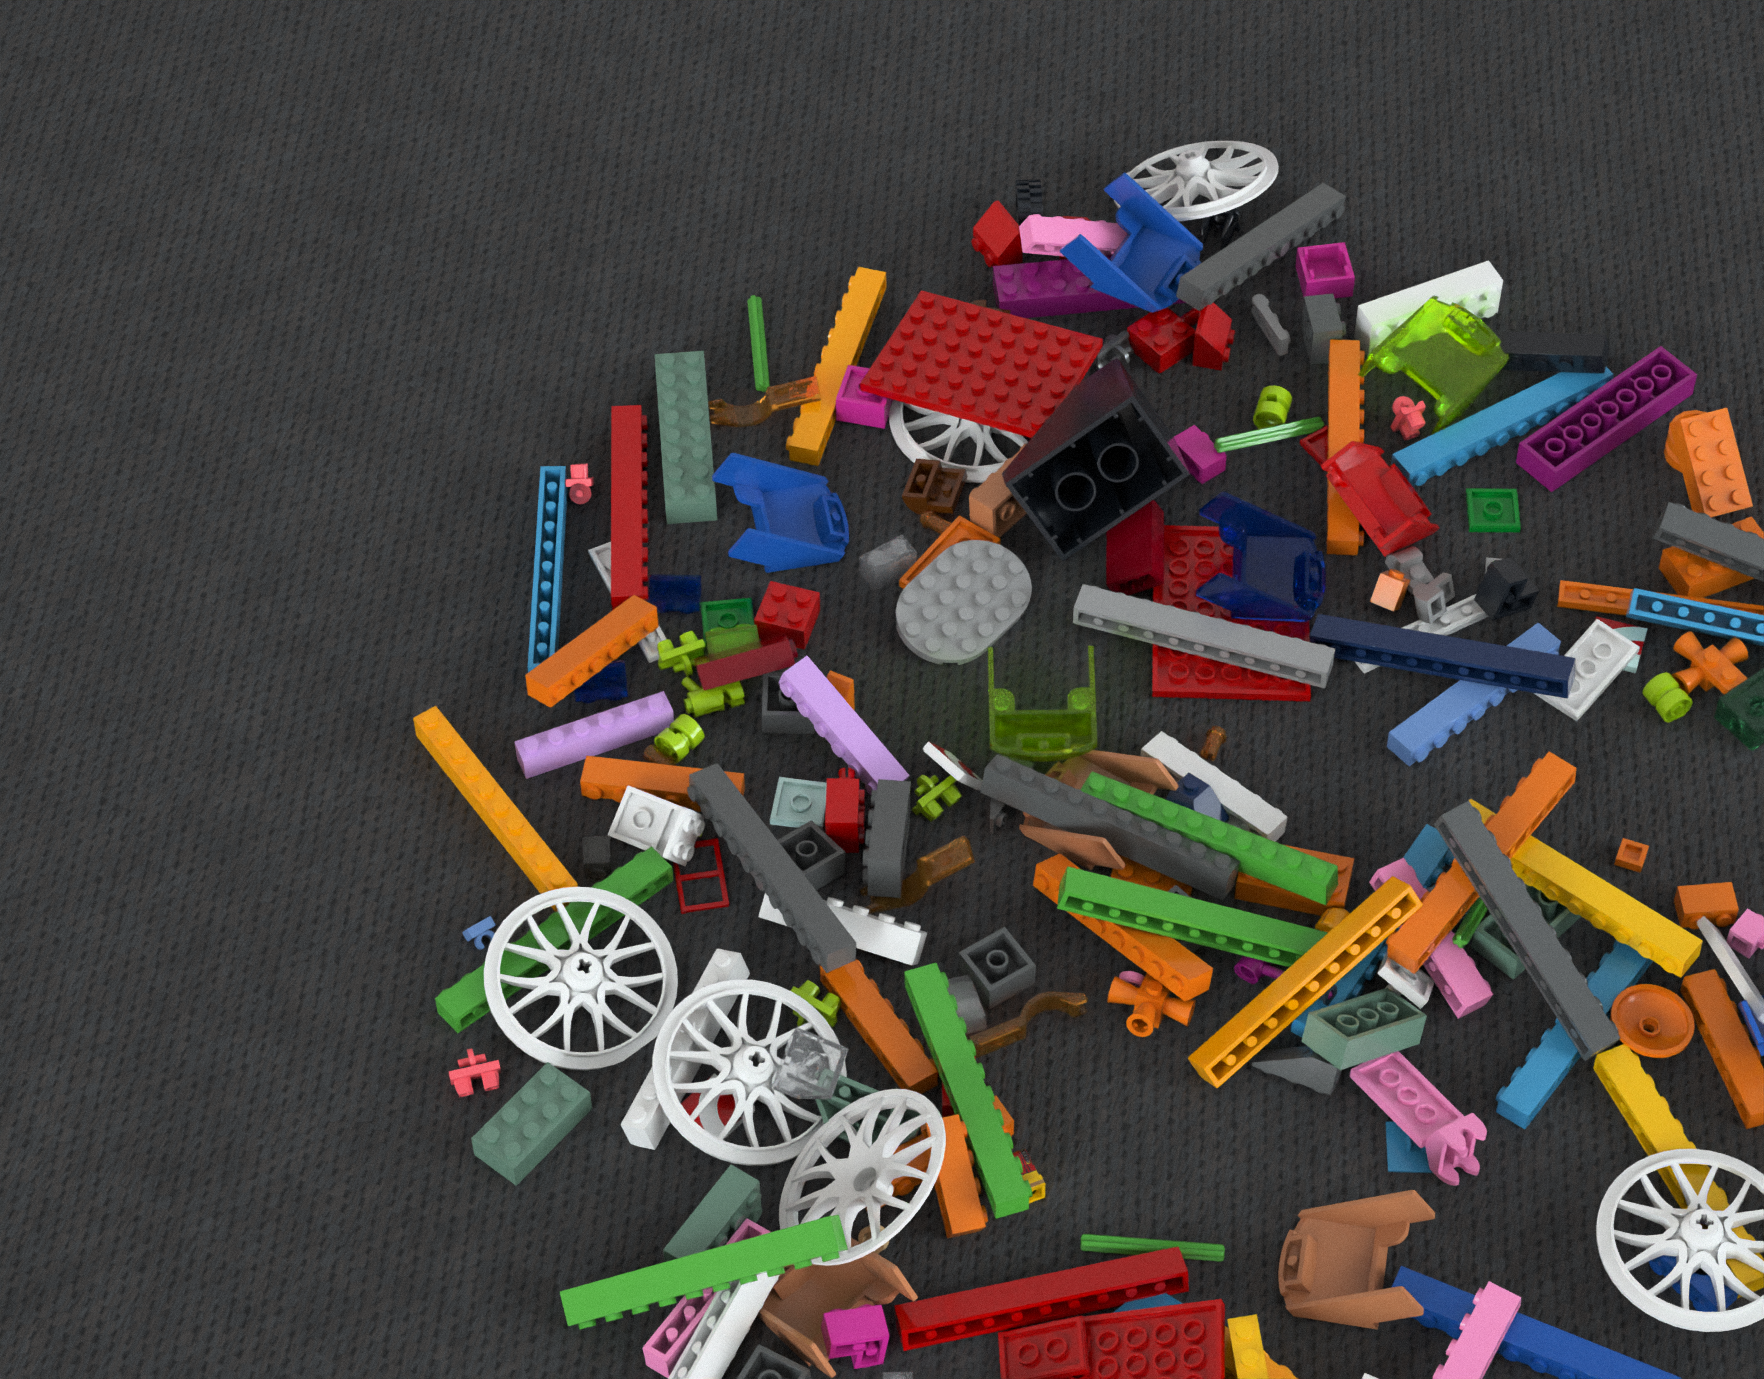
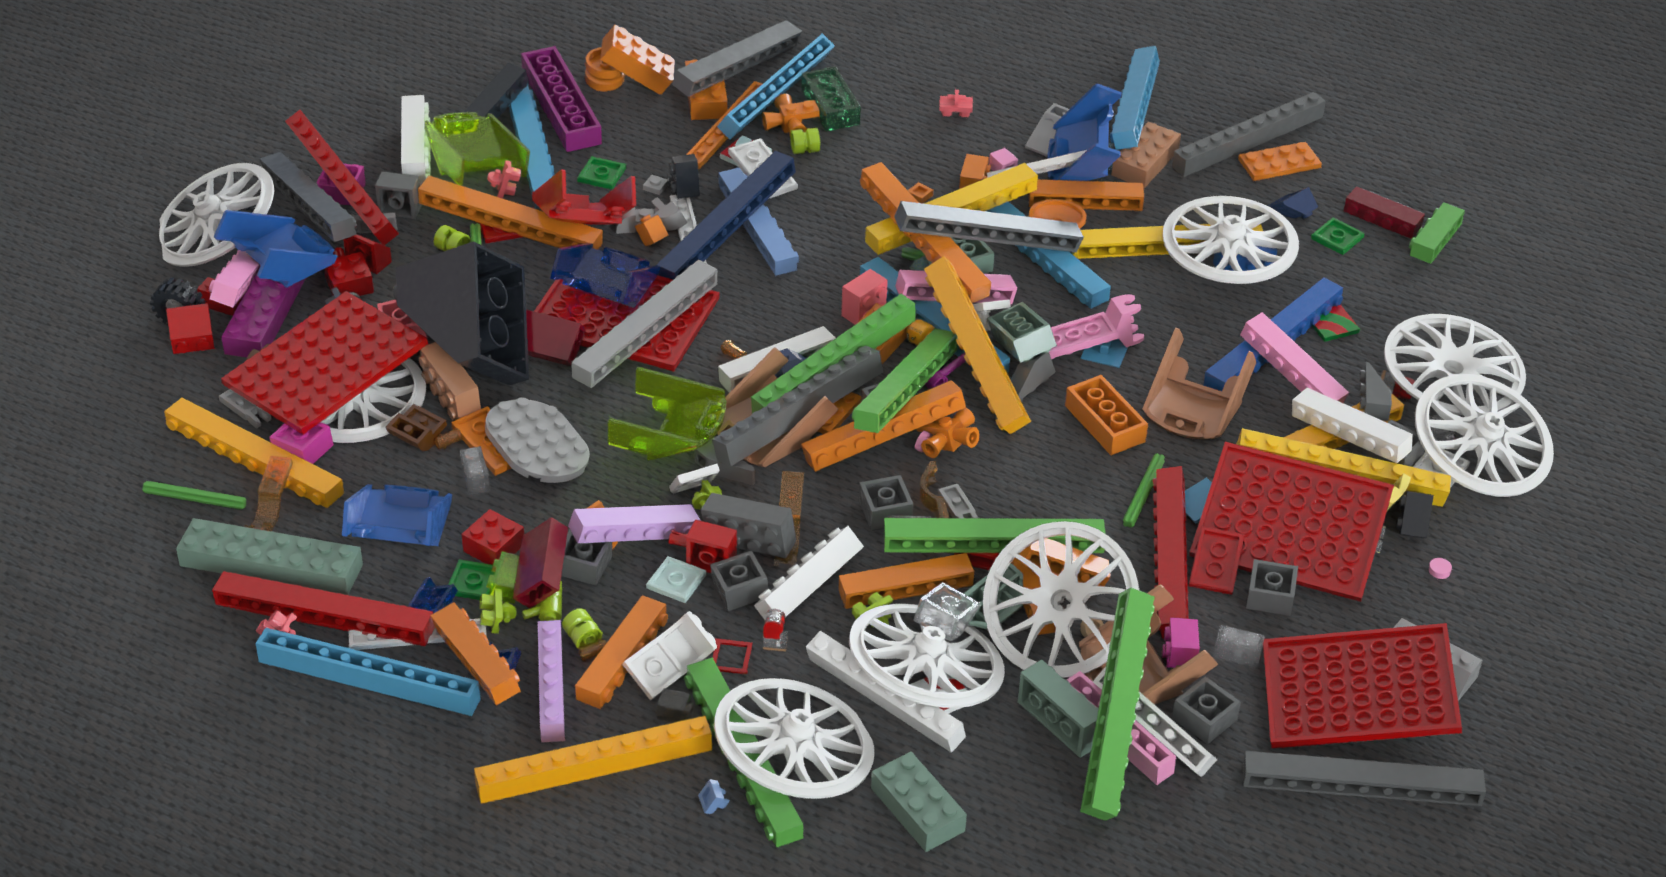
camera: 75 degrees left, 10 degrees down
(487, 1071) = (850, 829): coral hips -> none
(739, 916) = (773, 635): none -> leg
(772, 868) = (754, 587): dark grey brick -> none
(1032, 1050) = (957, 502): none -> light grey hinge
(1264, 1168) = (1106, 415): none -> orange brick
(1303, 262) = (342, 177): none -> red brick
(1365, 840) = (862, 295): none -> coral brick

